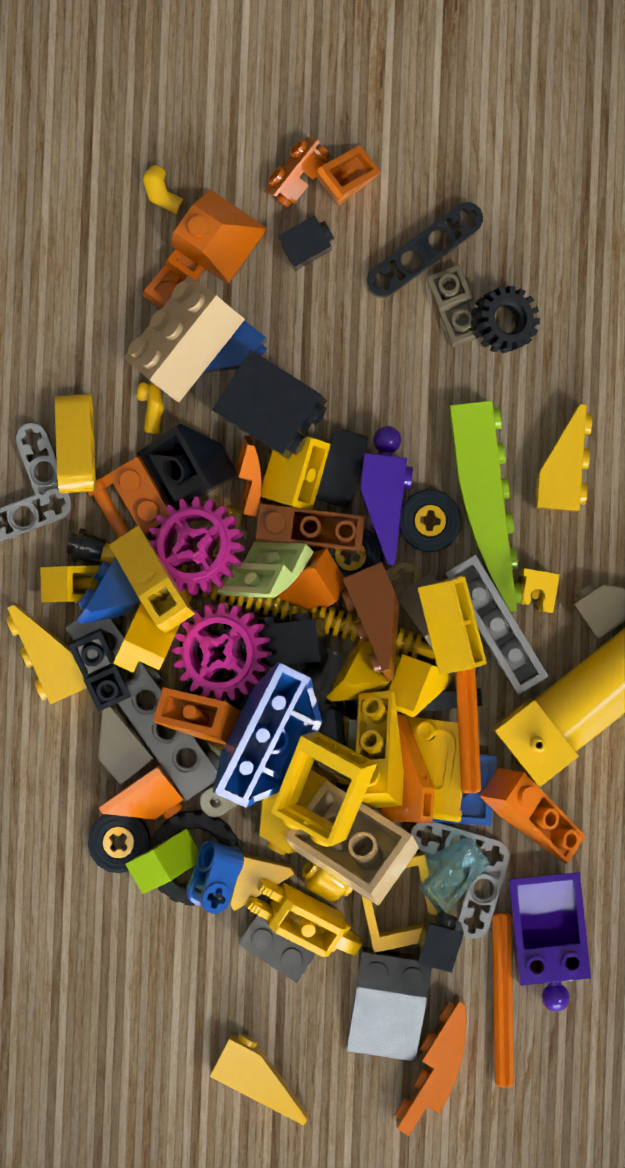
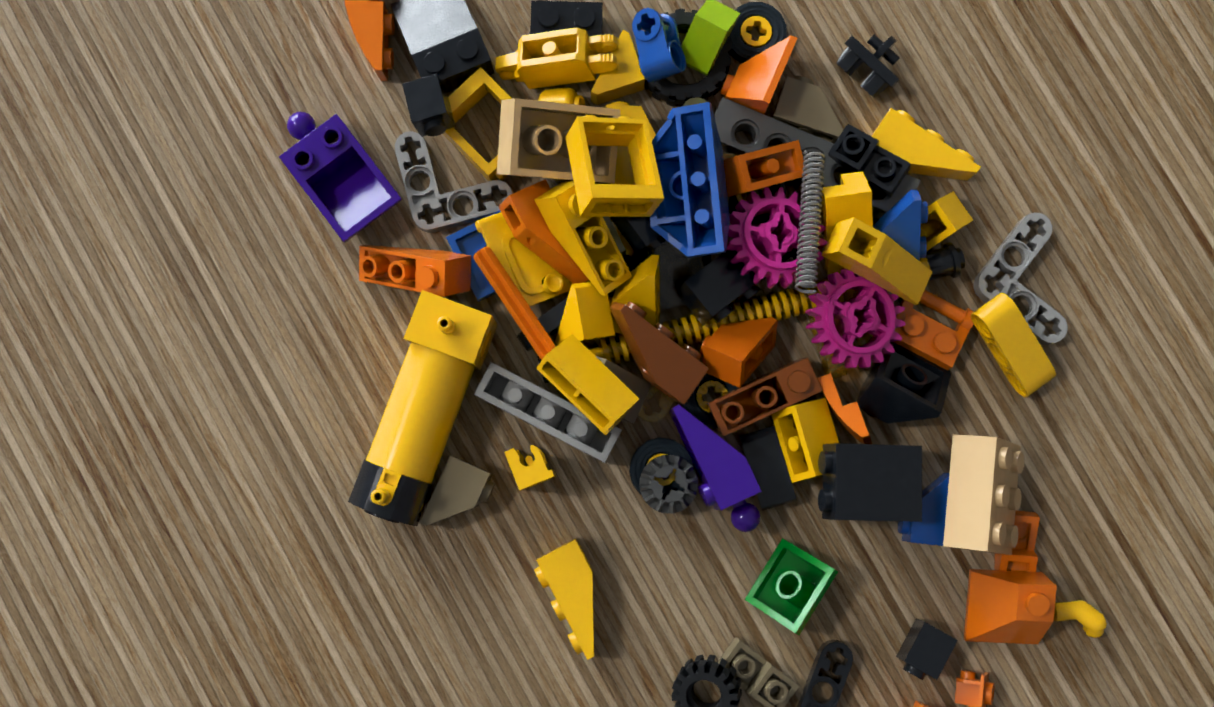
camera: 145 degrees right, 5 degrees down
(35, 739) = (881, 76): none -> black hips
(155, 406) = (963, 419): yellow arm -> none
(163, 675) = (809, 251): none -> light grey piece
(267, 570) = (779, 335): yellowish green slope -> none
(384, 361) = (791, 586): none -> green slope
(416, 502) = (662, 467): none -> dark grey gear
(453, 873) = (452, 173): clear light blue slope -> none
(484, 492) = (630, 525): lime slope -> none
(503, 999) = (346, 99): orange axle -> none

